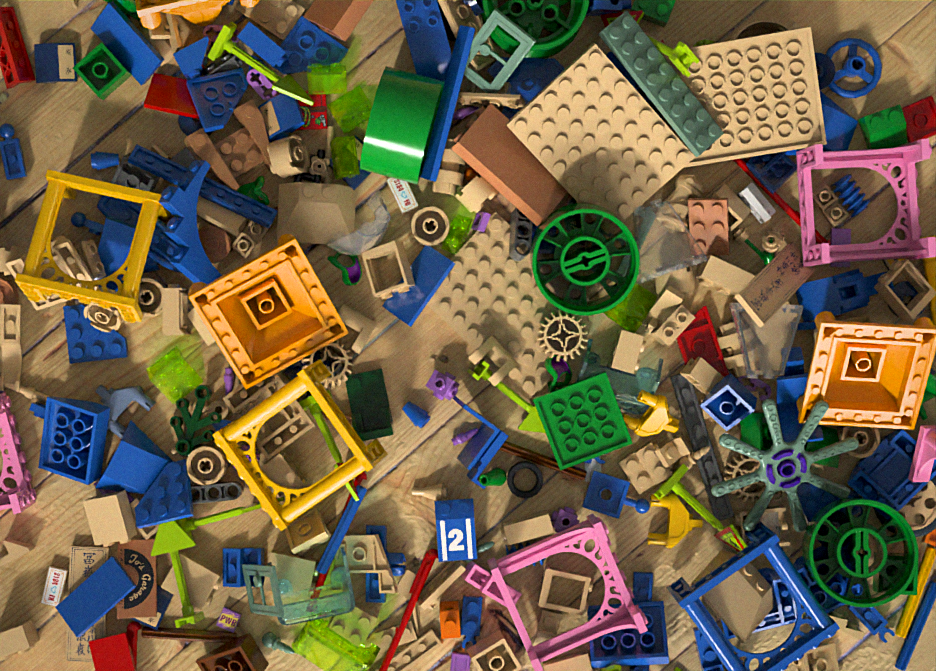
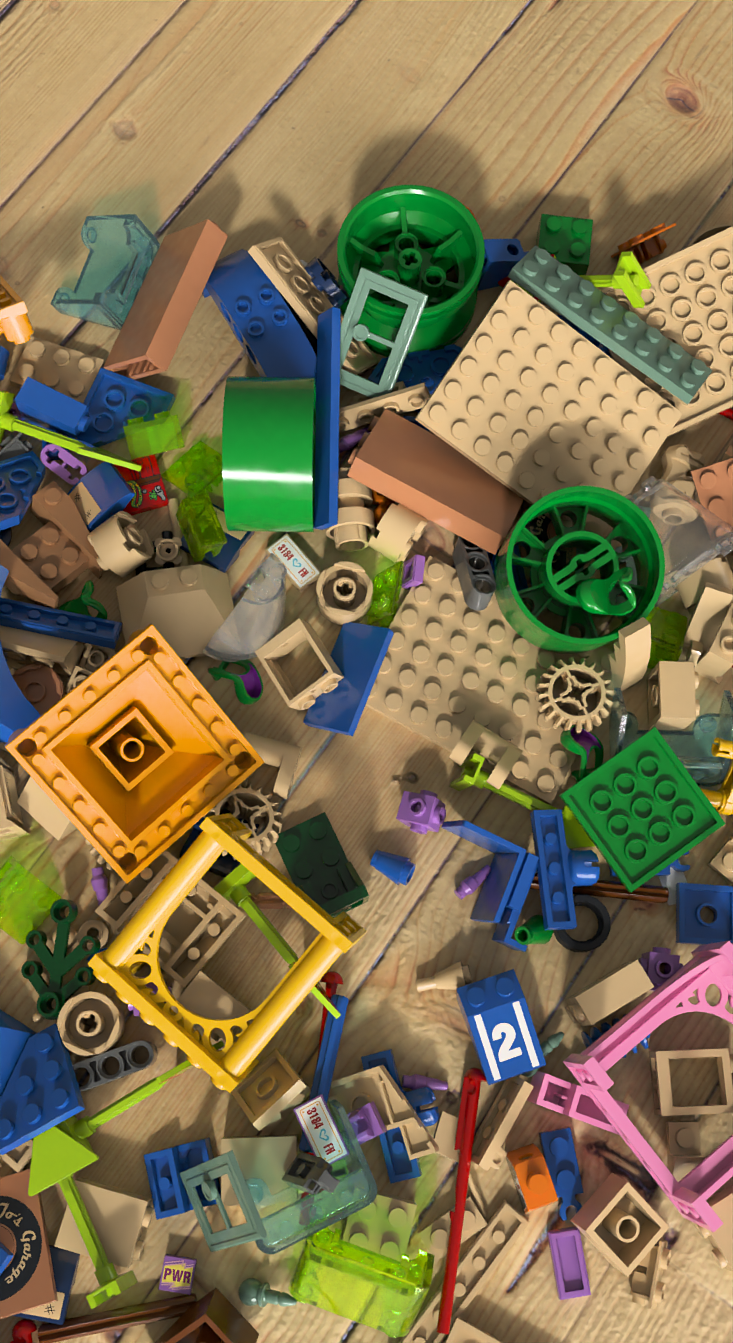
camera: 20 degrees left, 15 degrees down
(318, 587) = (310, 1174): none -> dark grey hinge
(331, 563) = (321, 1130): none -> white tile
(358, 565) = (366, 1122): none -> medium lavender tile
(398, 548) = (419, 1081): none -> medium lavender piece
(519, 444) = (559, 869): none -> blue plate
(586, 283) = (594, 594): none -> green piece
(603, 322) = (631, 654): none -> tan slope
(720, 8) = (645, 245): none -> orange hinge

